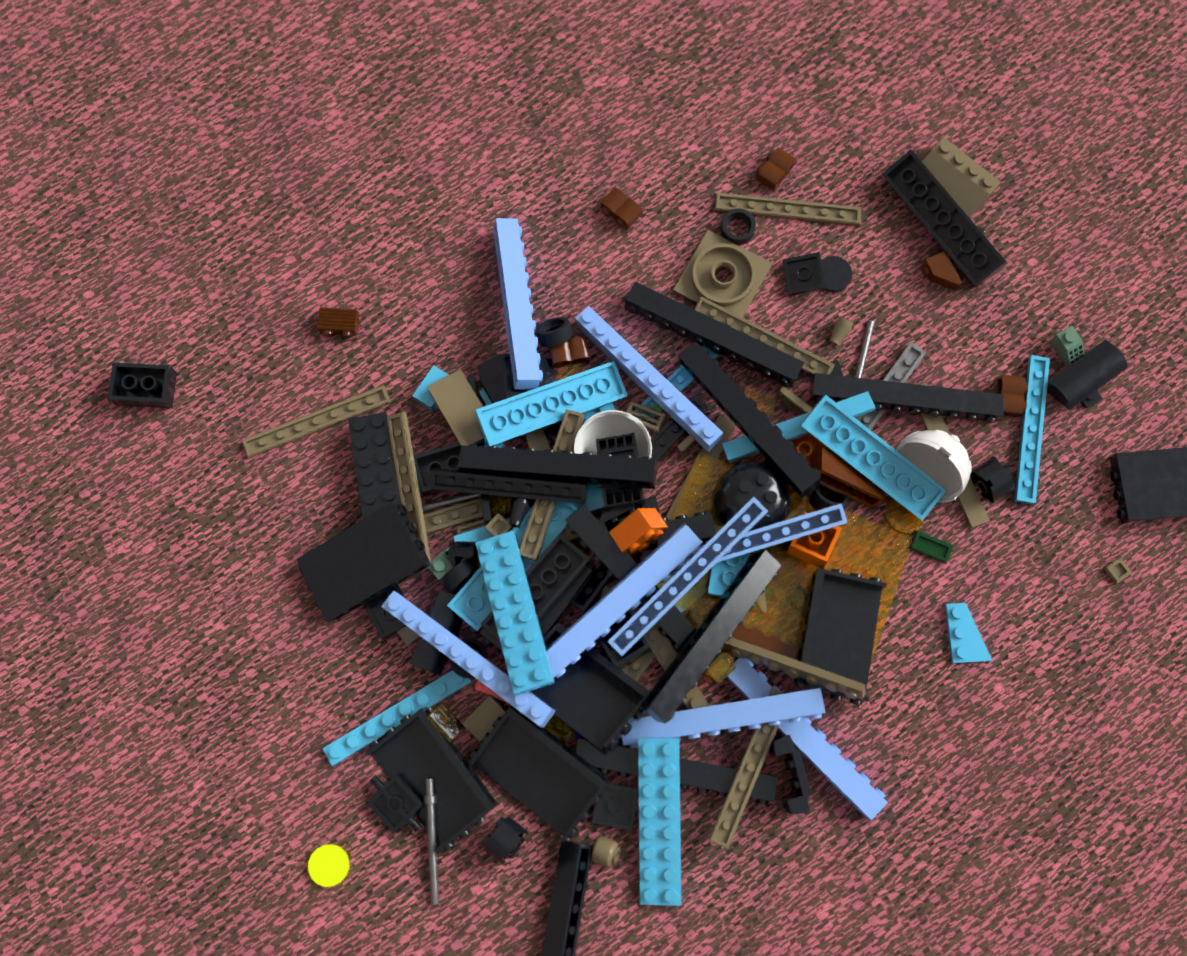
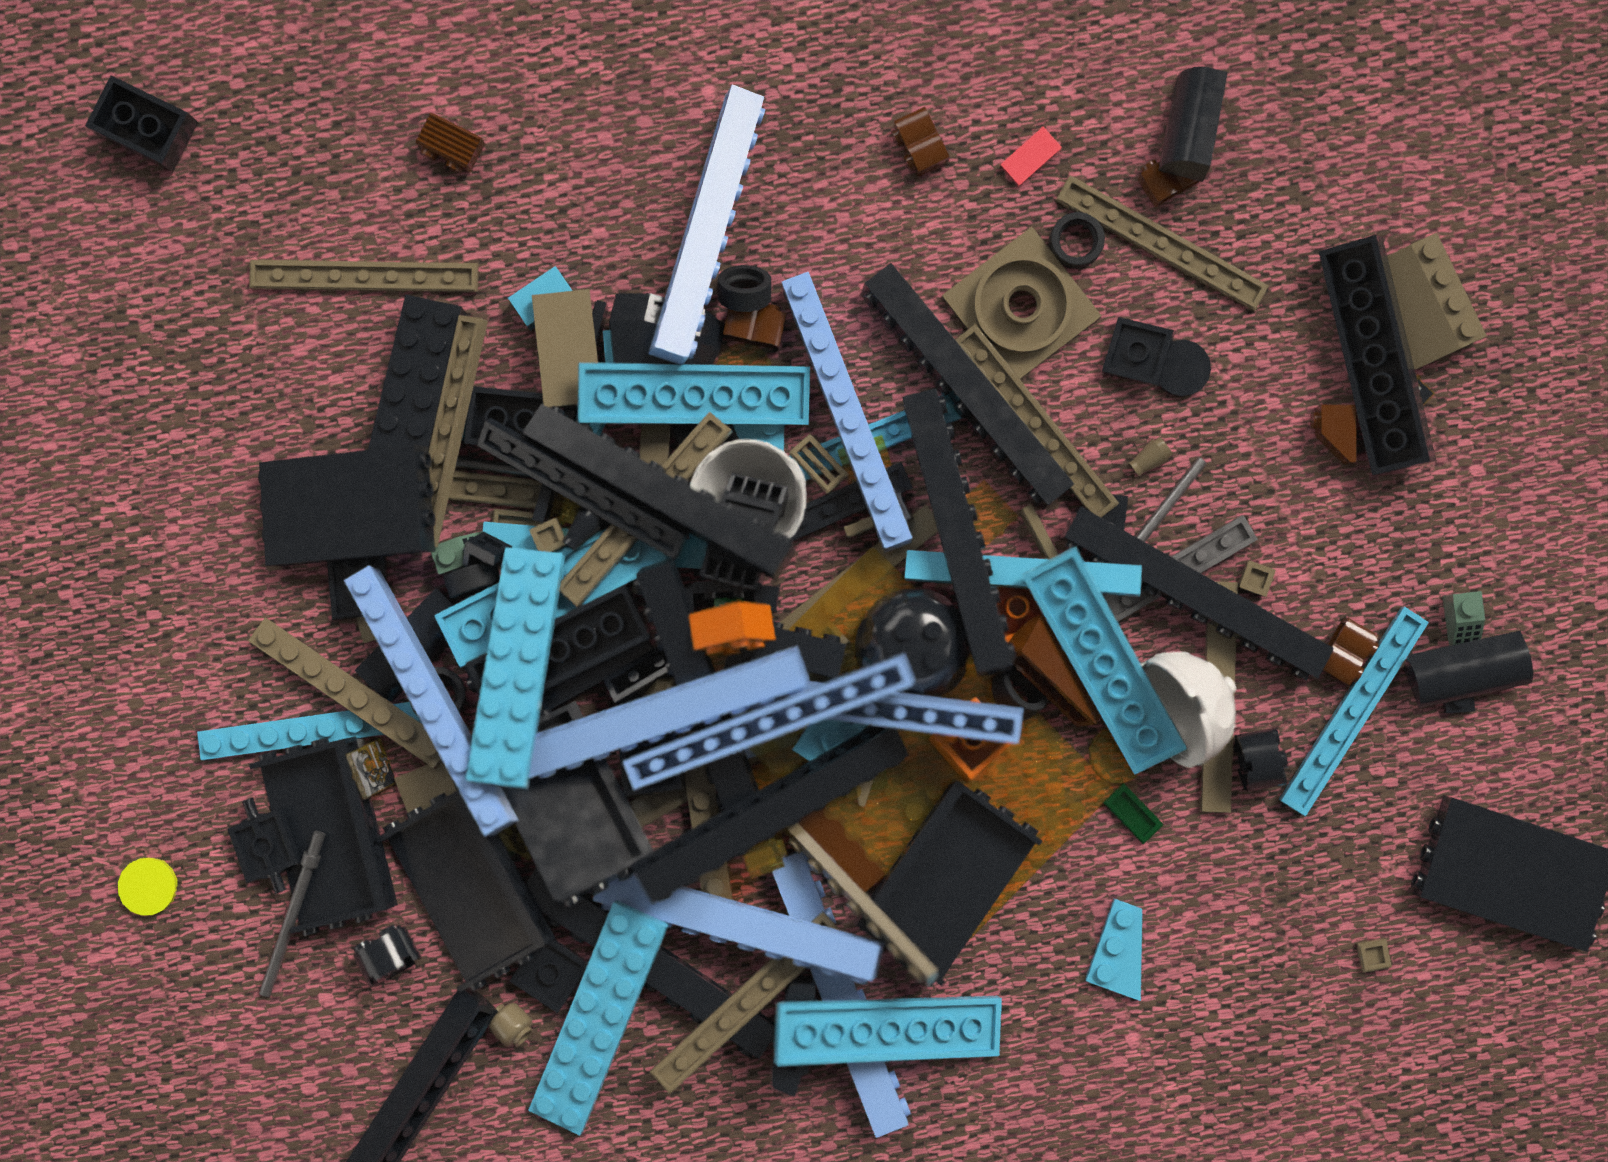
camera: 25 degrees right, 10 degrees up
(411, 680) = (346, 690): none -> dark tan plate
(689, 191) = (1030, 156): none -> coral tile
(775, 133) = (1193, 122): none -> black brick
(846, 745) = (887, 1029): none -> medium azure plate
(936, 375) = (1256, 578): none -> dark tan plate

